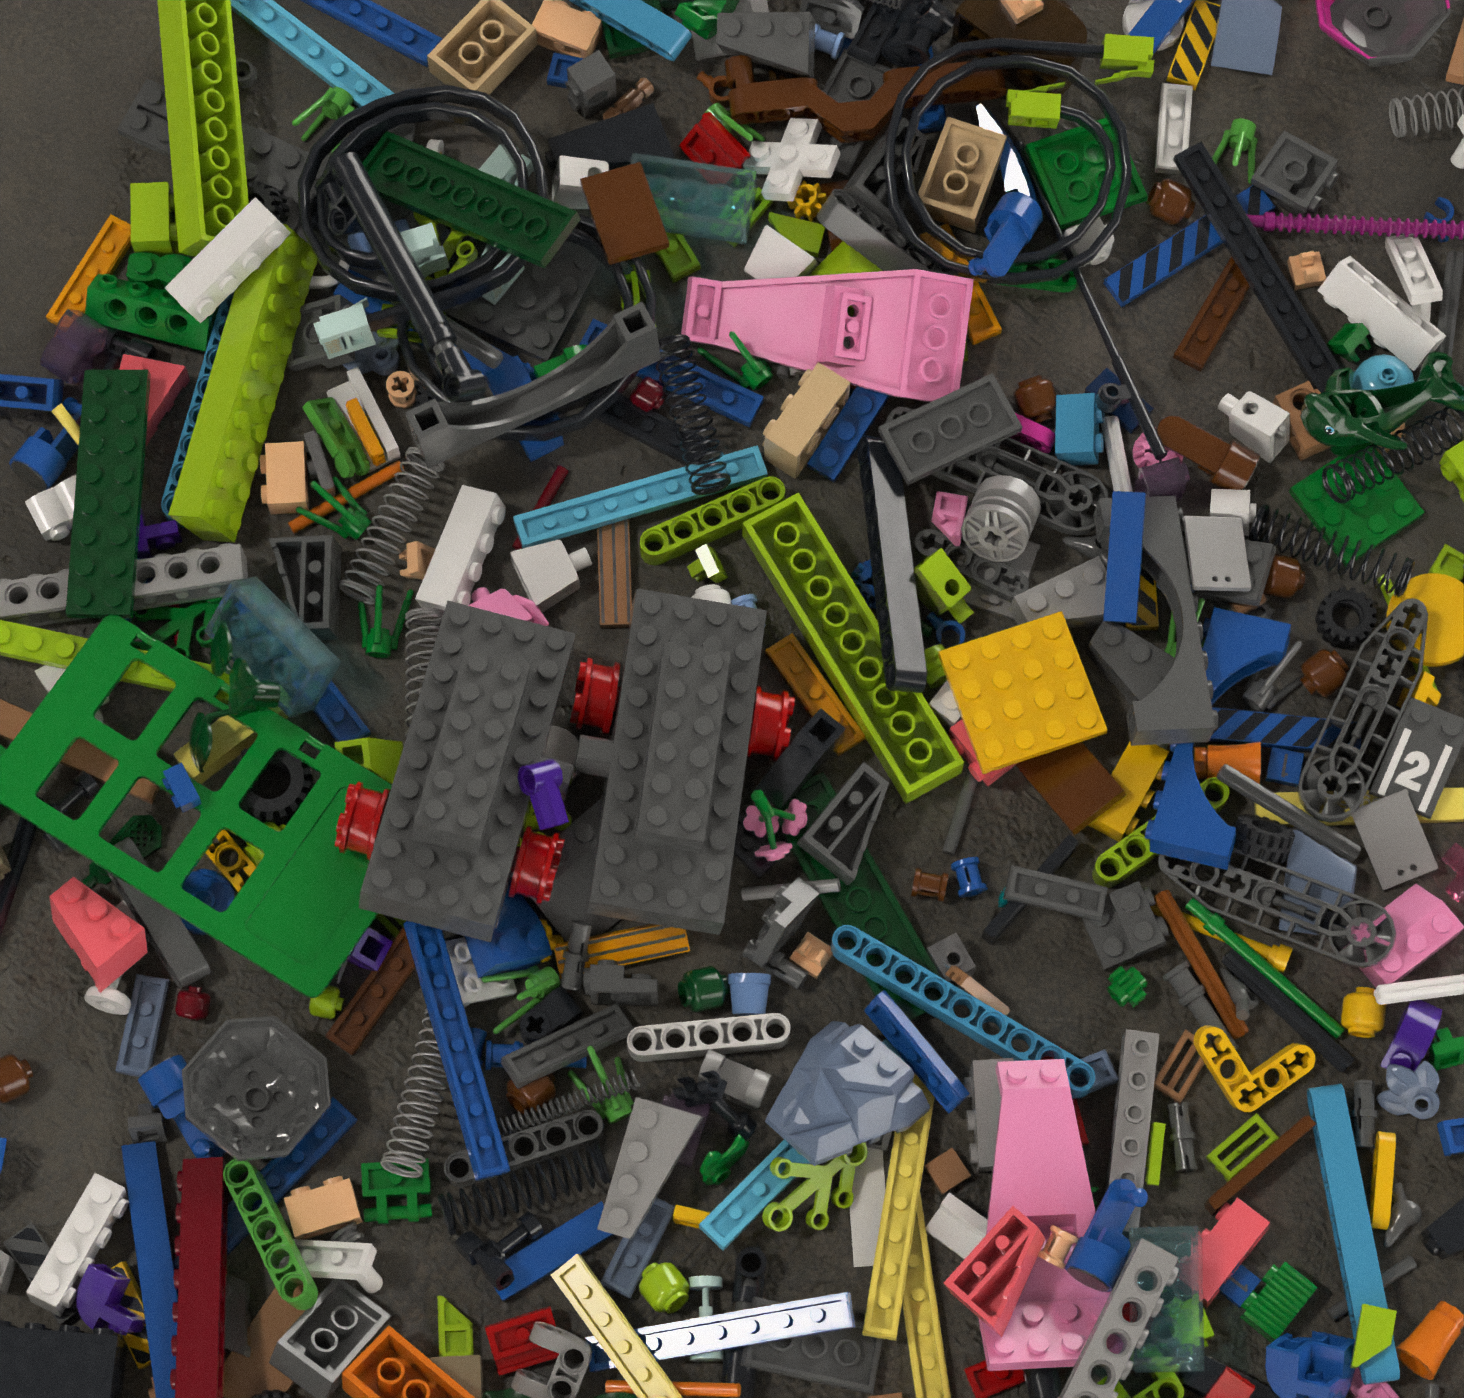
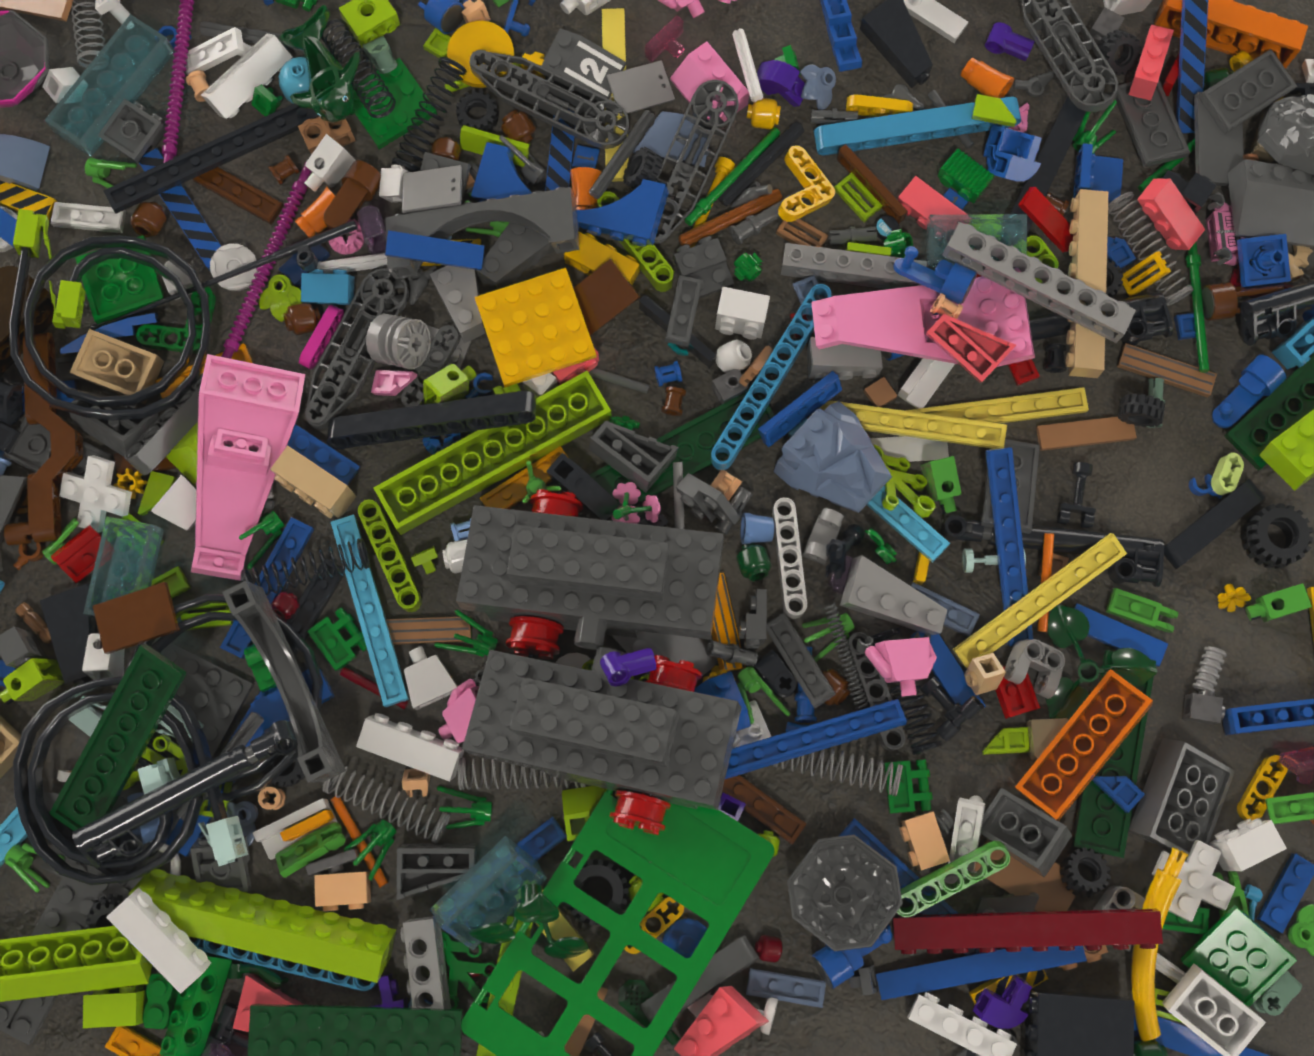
camera: 90 degrees left, 5 degrees up
(180, 398) = (269, 977): none -> dark green piece
(182, 788) = (609, 960): blue piece -> none
(543, 1291) = (984, 674): none -> tan brick
(549, 94) = (31, 680): none -> lime torso
(560, 1174) = (901, 660): none -> bright pink torso
(594, 640) = (482, 643): none -> green plant
(598, 454) = (332, 643): none -> green plate
(664, 1287) = (972, 589): lime head -> none
(805, 700) = (535, 484): none -> bright green plant
(828, 1244) = (938, 473): none -> bright green torso
(895, 818) = (625, 422): none -> green plant
(950, 429) = (326, 376): dark grey plate -> none
(993, 963) = (733, 356): none -> white head
(996, 313) = (299, 188): none -> magenta hose
(1008, 231) = (168, 329): blue piece -> none
(1055, 973) = (741, 313): none -> white brick
(1064, 373) = (279, 299): none -> lime plate
(1116, 307) = (230, 258): none -> white tile
(1168, 1199) = (898, 243): none -> green gear
(1174, 402) = (313, 217): none -> orange plant
(1196, 1187) = (885, 225): none -> tile
(1249, 367) = (283, 169): none -> reddish brown bush
(1302, 621) = (475, 141): none -> lime tile
(1306, 270) = (208, 128): light nougat tile -> none
(1356, 85) = (59, 82): none -> white brick
(1366, 143) = (116, 73): none -> clear light blue brick
(1370, 253) = (198, 82): none -> light nougat bush
(1425, 486) = (380, 55): none -> sand green piece

